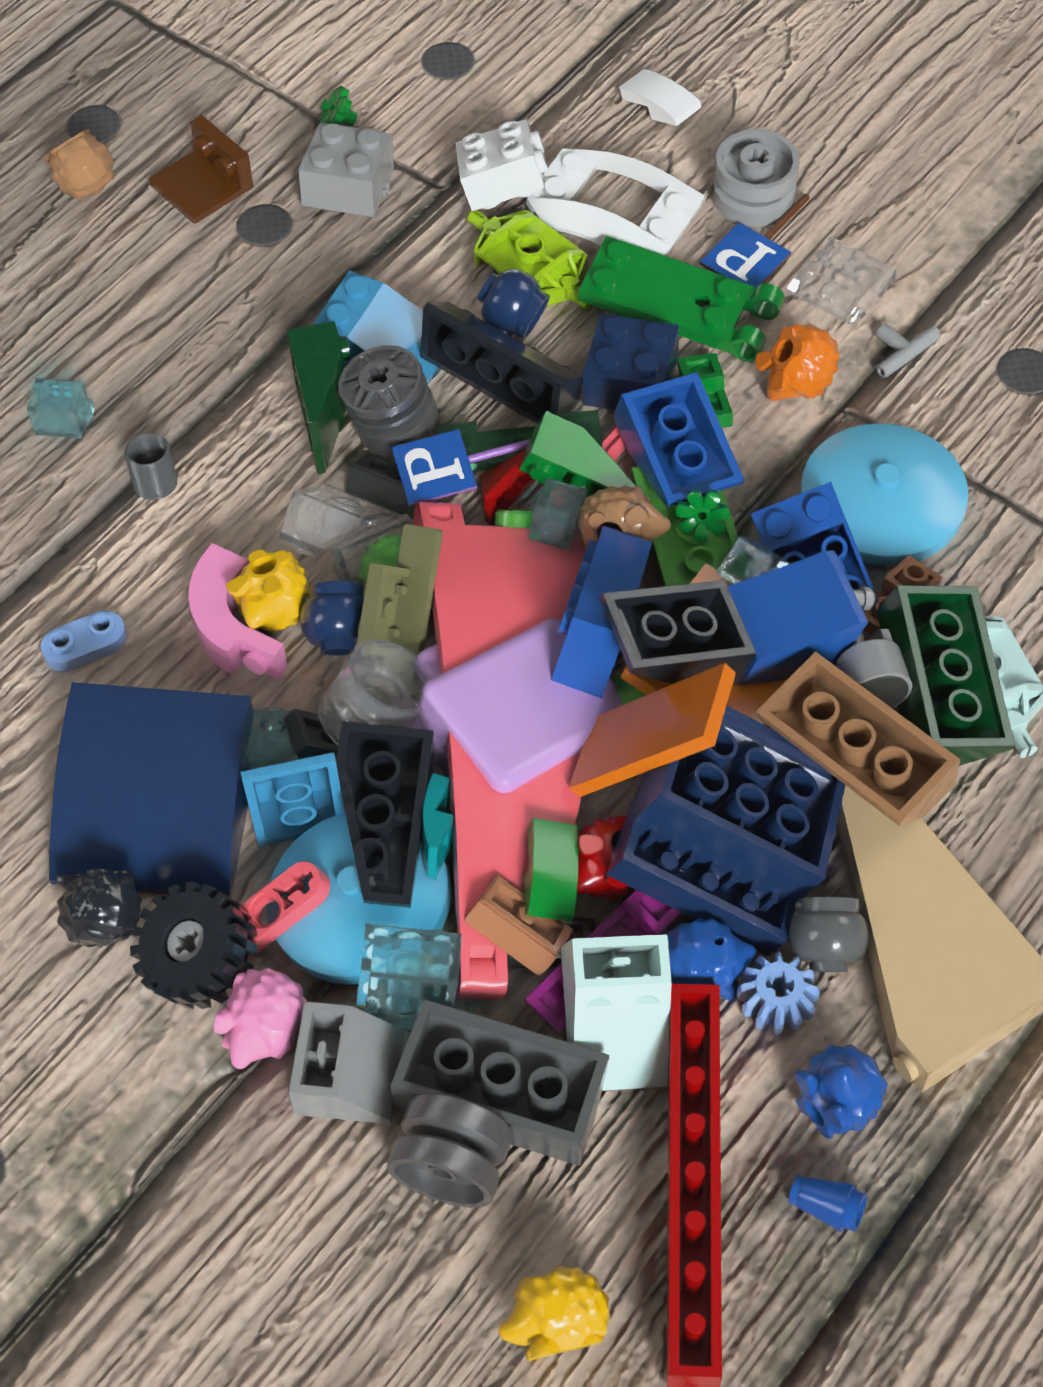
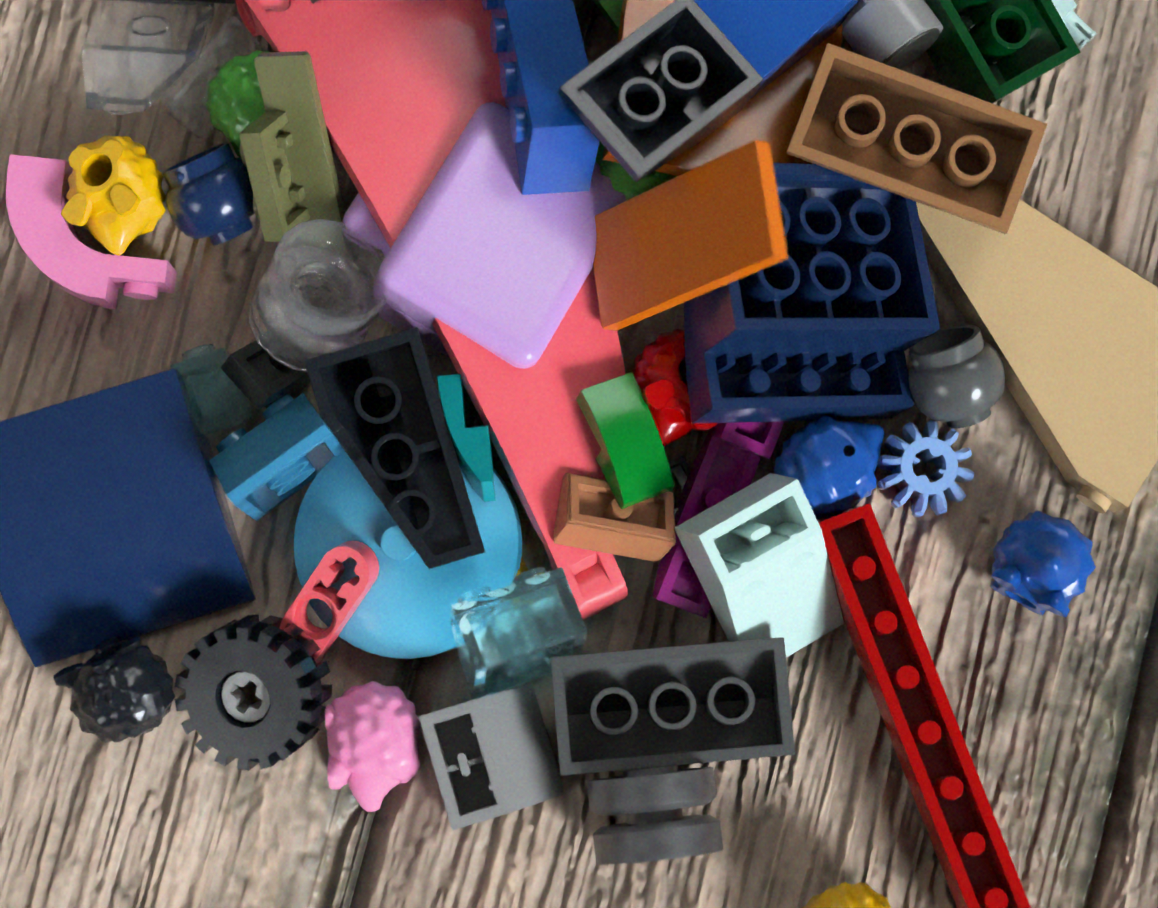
camera: 30 degrees left, 25 degrees up
(829, 1201) = (1068, 686): blue cone -> none

